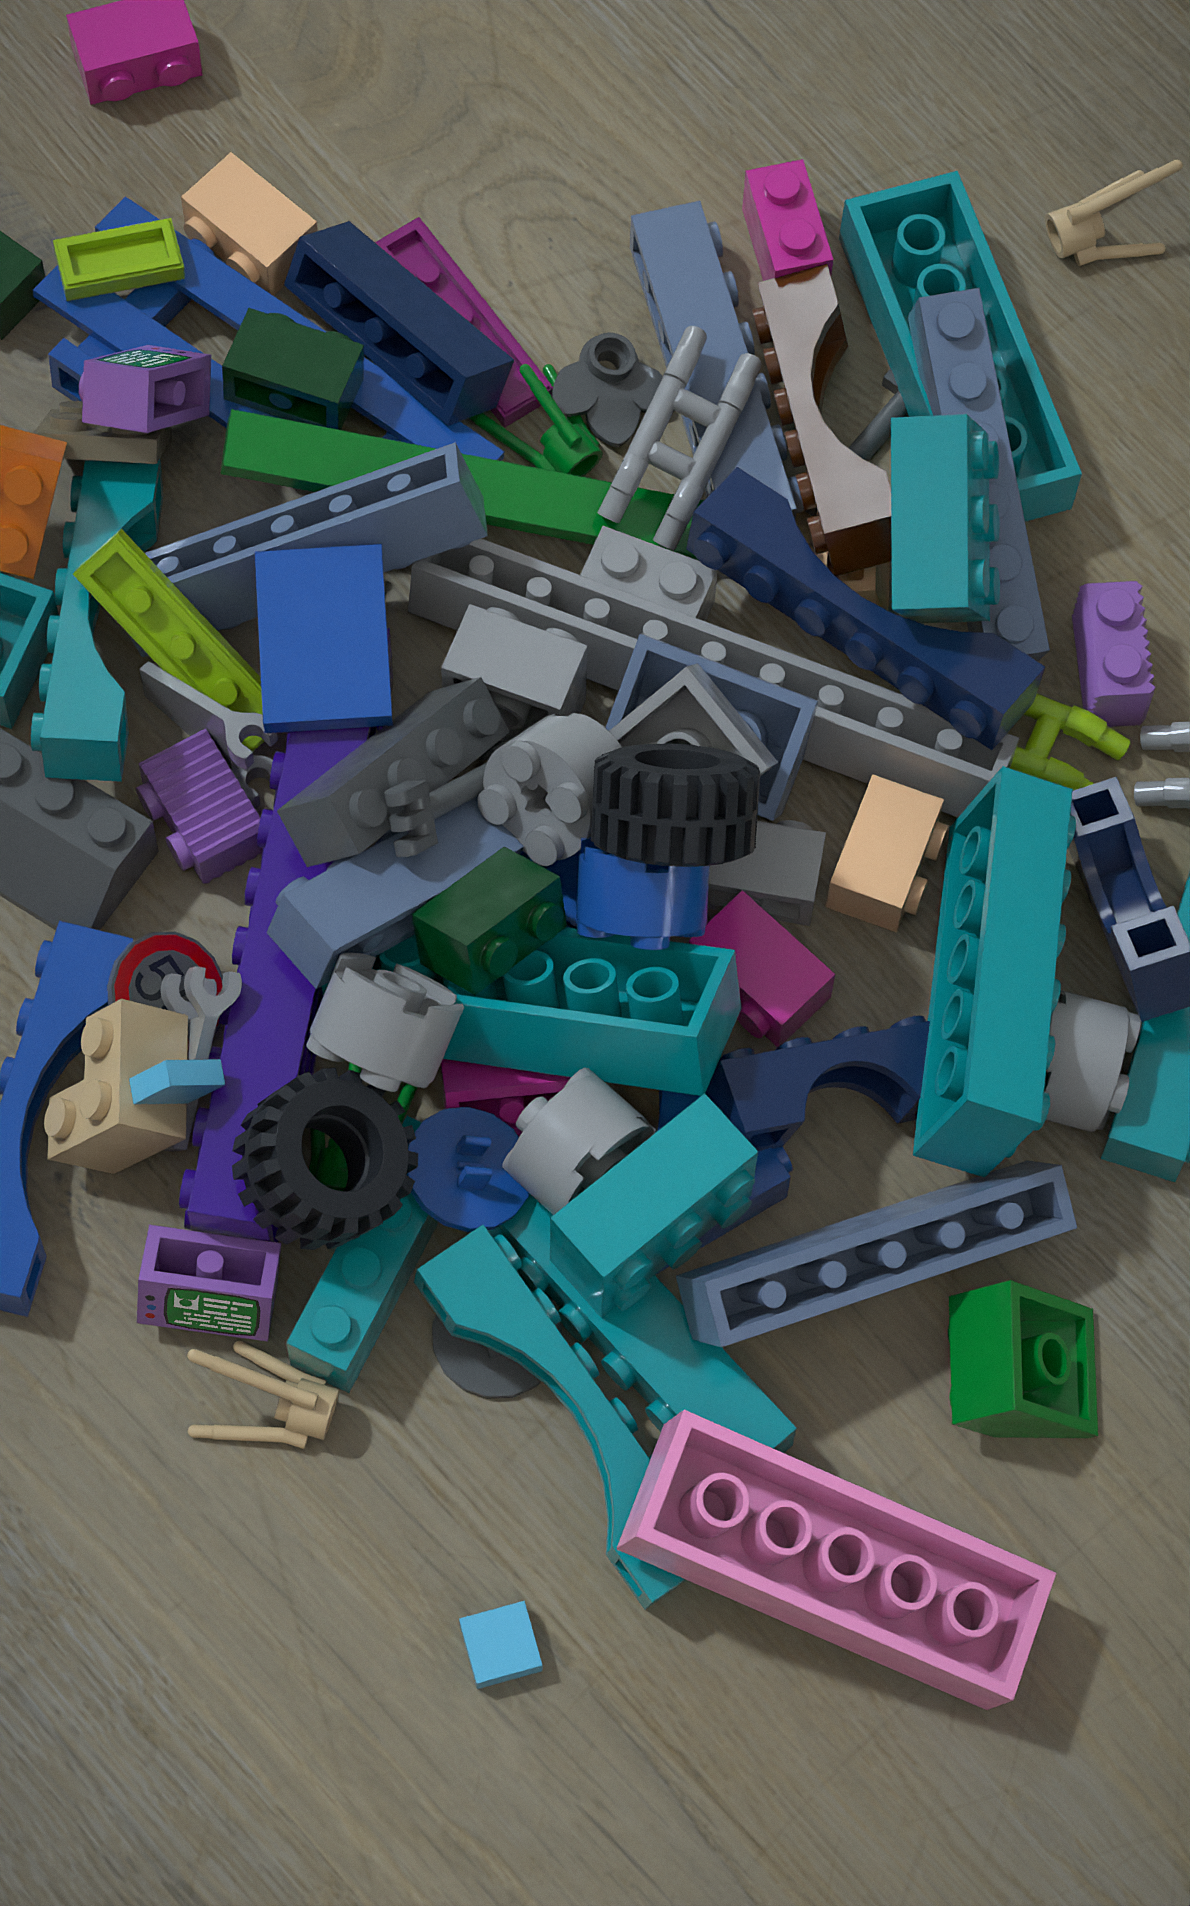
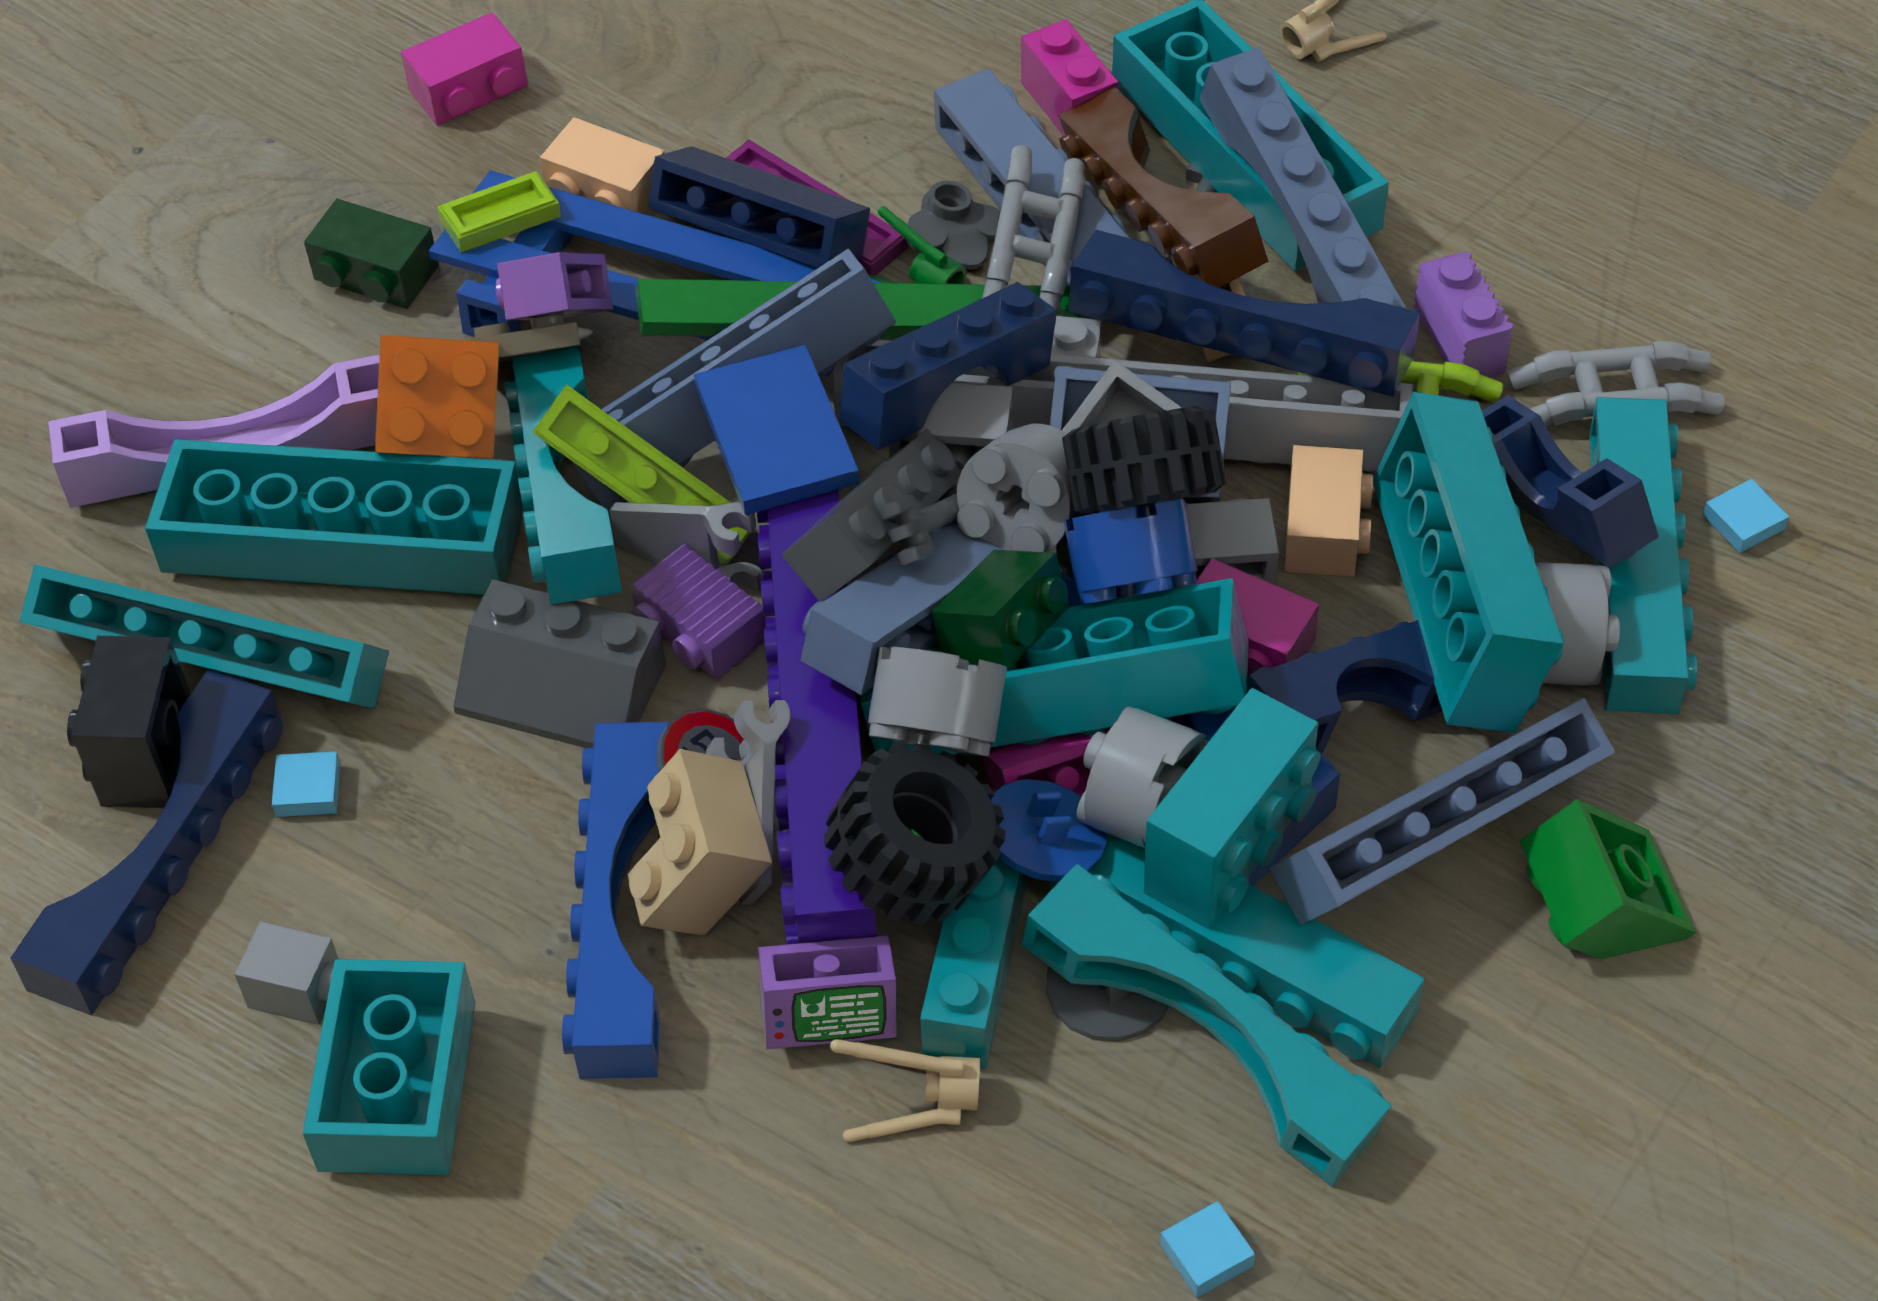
camera: 10 degrees left, 15 degrees down
(177, 1081) = (753, 804): medium azure tile -> none
(293, 370) = (678, 246): dark green brick -> none
(463, 624) = (898, 383): none -> dark blue arch
(837, 1561) = (1509, 1074): bright pink brick -> none
(943, 519) = (1295, 209): teal brick -> none

